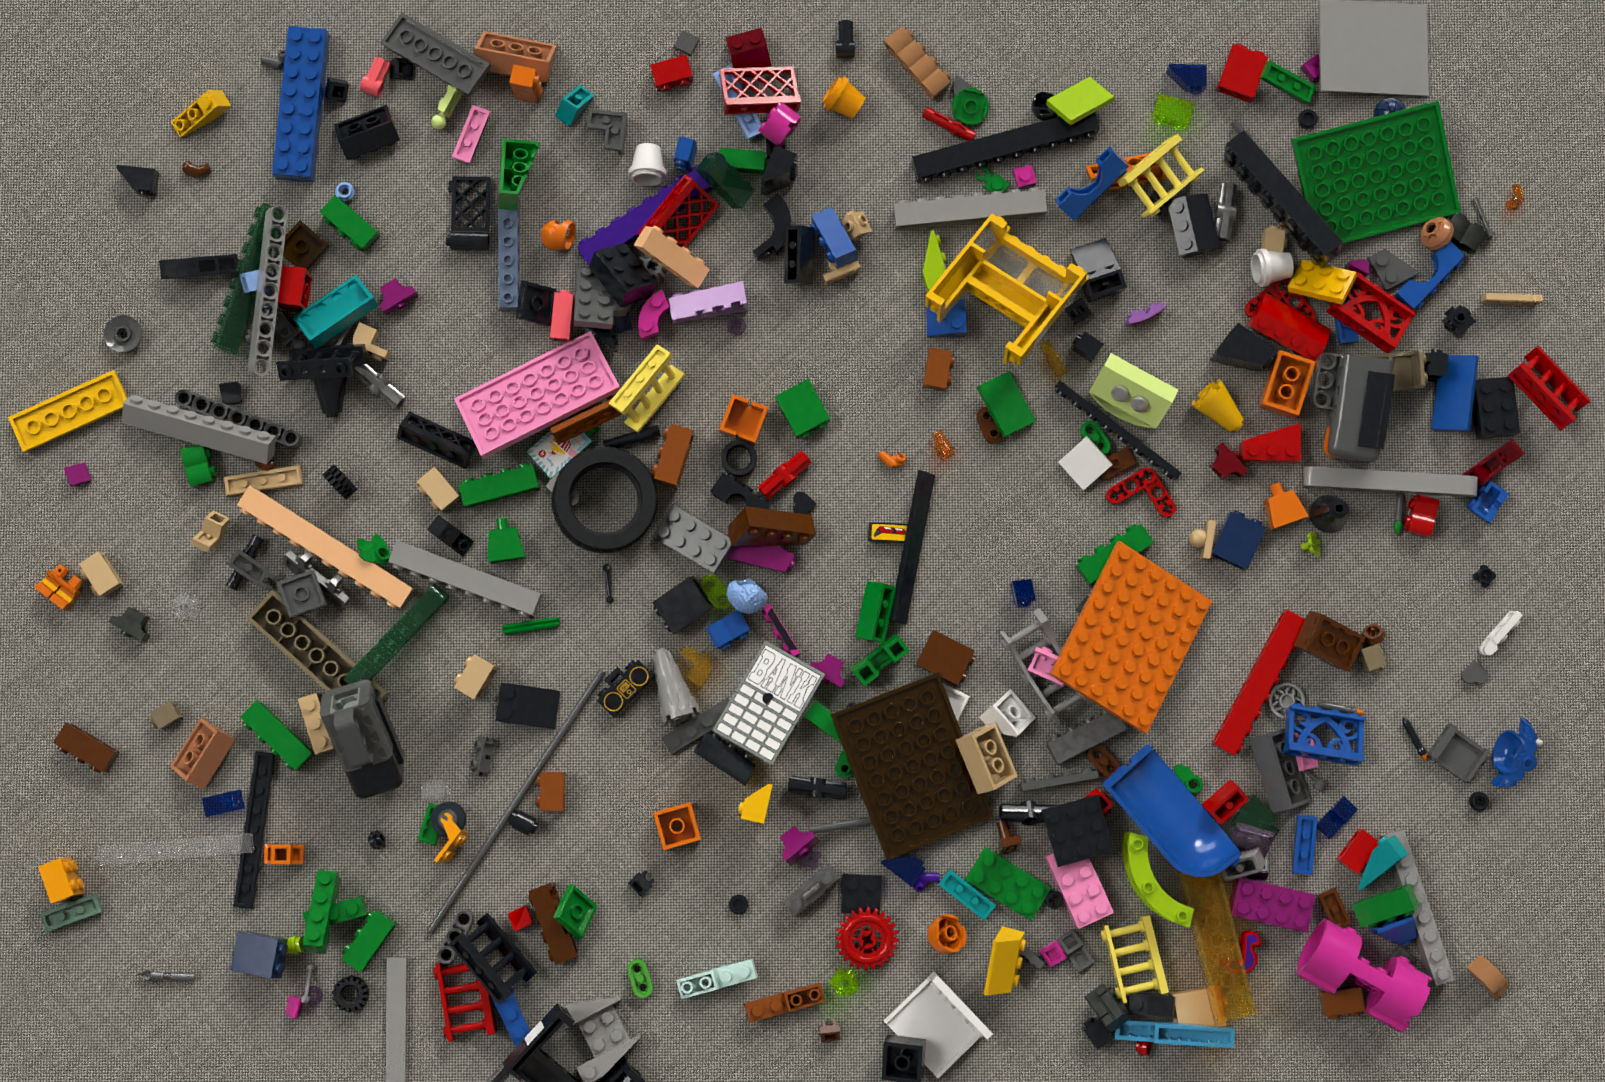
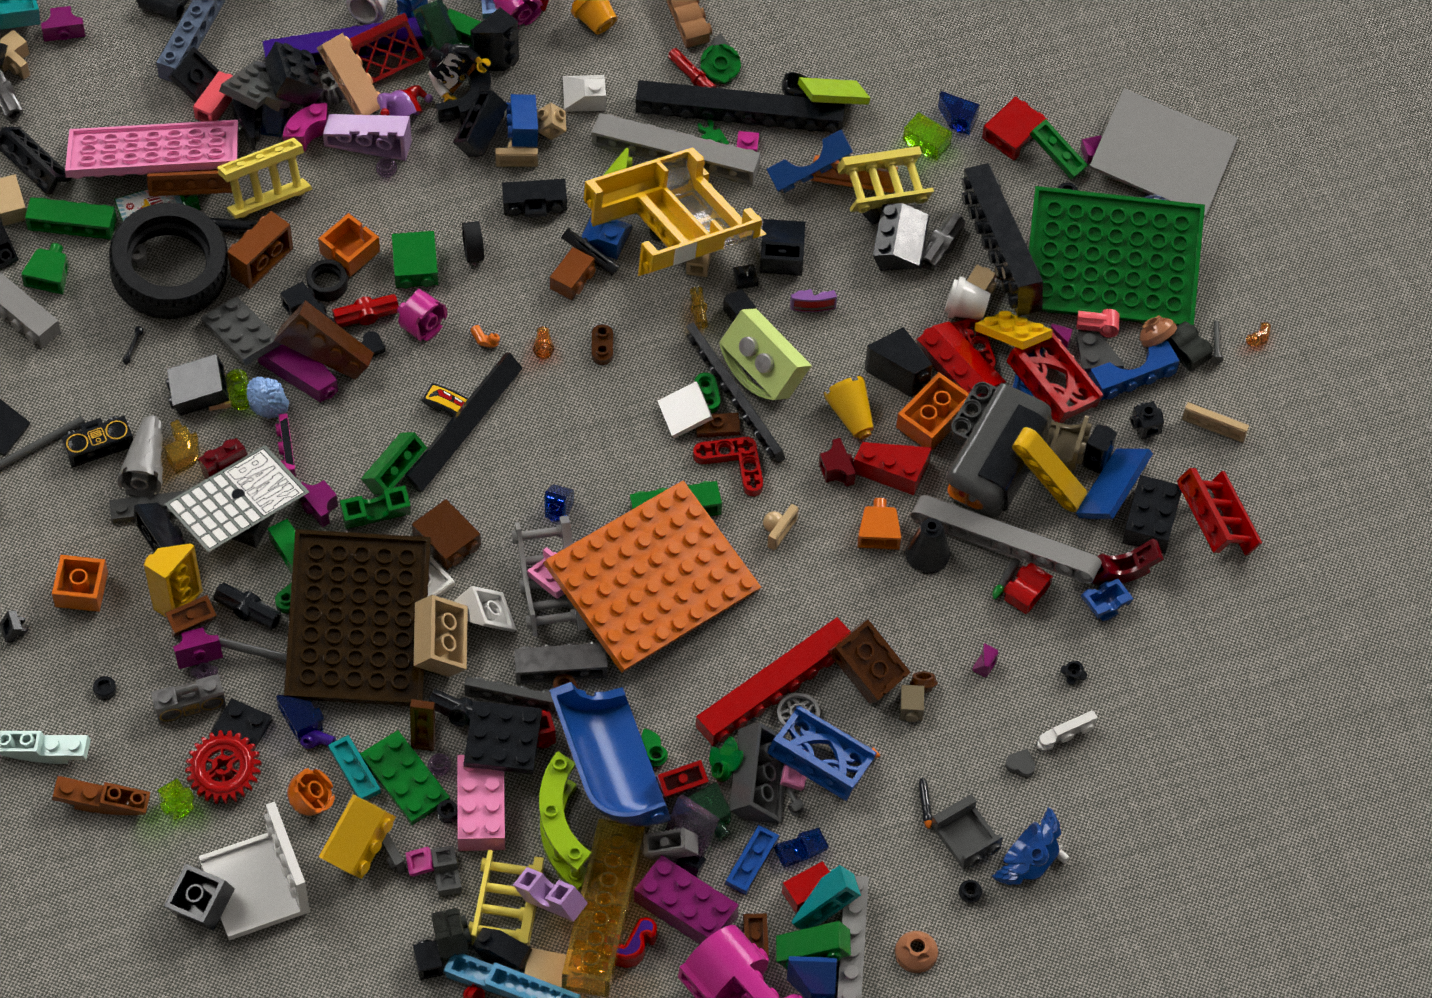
camera: 25 degrees right, 25 degrees down
(529, 626) = (33, 352): green axle -> none
(554, 235) = (245, 25): orange helmet -> none
(724, 260) = (403, 101): none -> medium lavender piece
(728, 629) = (232, 425): blue brick -> none
(736, 666) = (221, 457): none -> dark red brick
(751, 211) = (452, 66): none -> torso
(780, 820) = (190, 615): none -> dark orange panel
(830, 1032) = (134, 846): reddish brown tile -> none
(835, 464) = (421, 315): none -> dark pink brick
(844, 375) = (473, 241): none -> black tyre
(867, 181) = (584, 93): none -> white slope
(867, 308) = (534, 197): none -> black piece
(962, 347) = (608, 264): none -> black pin
(1006, 404) = (628, 328): green tile -> none
(1036, 862) = (439, 758): none -> clear purple plate
(1179, 956) = (558, 898): none -> lavender arch
(1238, 540) = (815, 539): dark blue brick -> none
(1250, 769) = (725, 760): none -> green plate
(1312, 544) = (896, 571): lime plant -> none
(1388, 240) = (1105, 322): none -> coral piece
(1407, 411) = (1049, 469): none -> yellow beam
(1413, 595) = (986, 661): none -> magenta slope
(1448, 864) = (916, 961): none -> nougat piece

